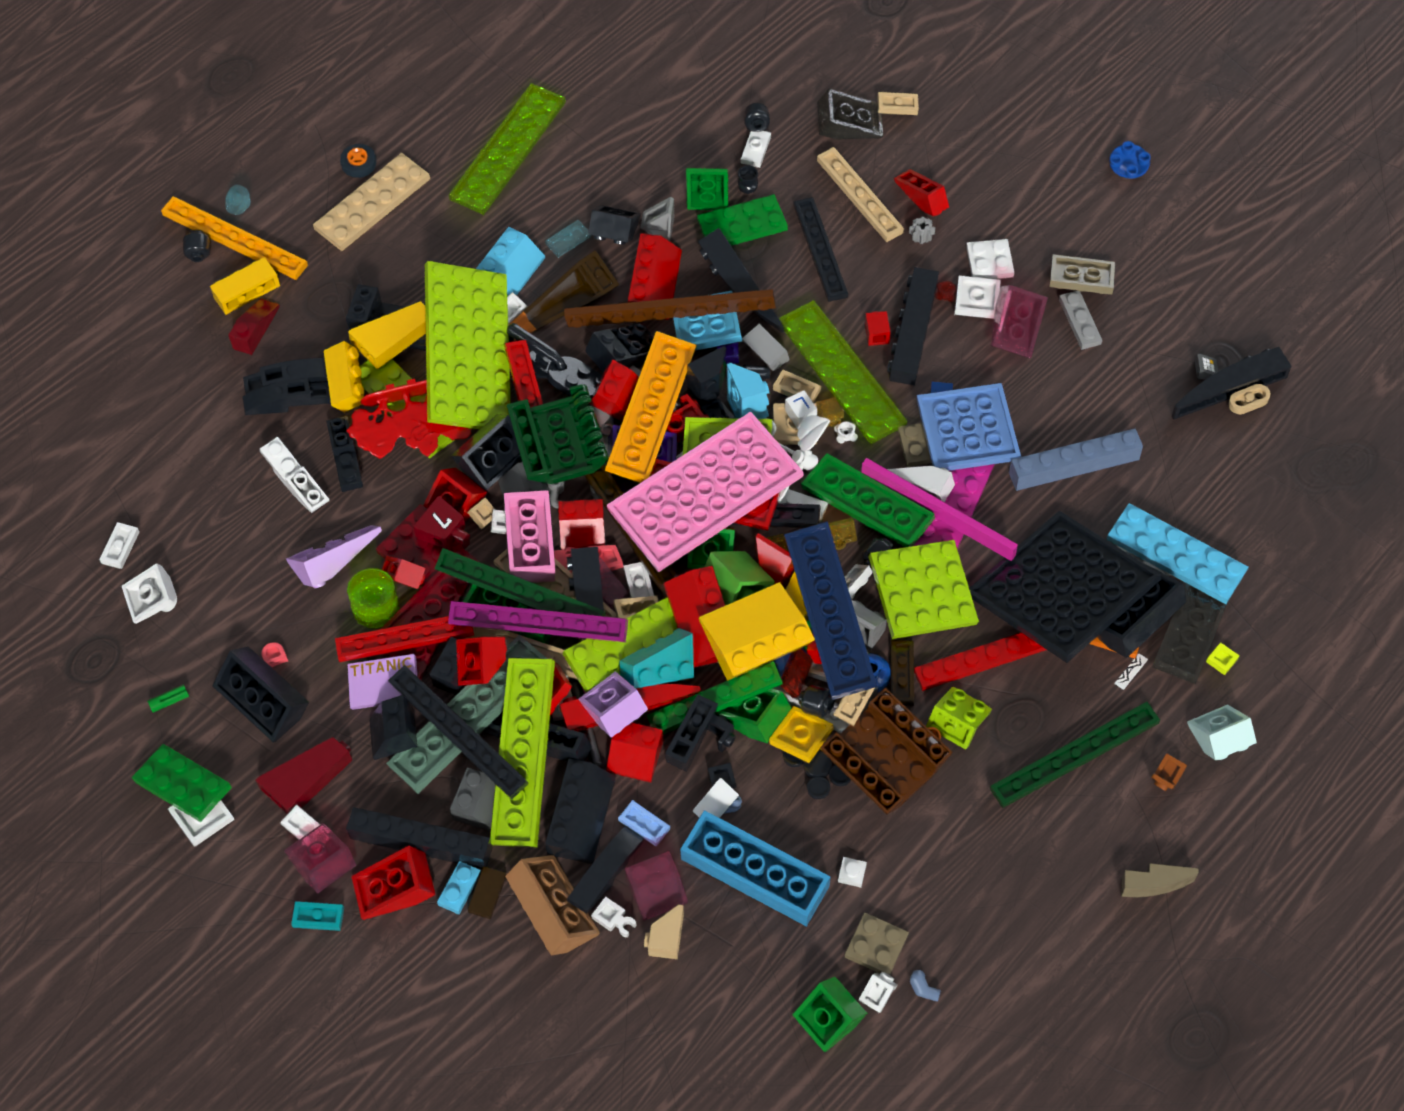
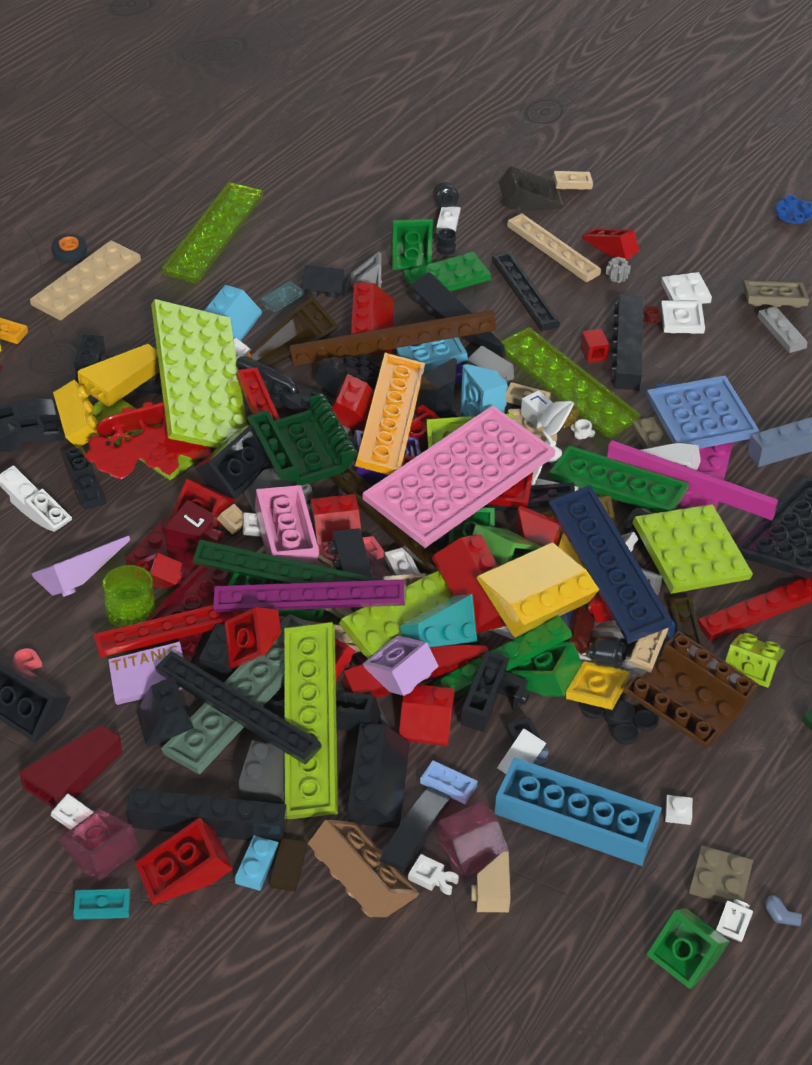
camera: 10 degrees left, 15 degrees down
(1017, 320) = (726, 327): clear pink slope -> none

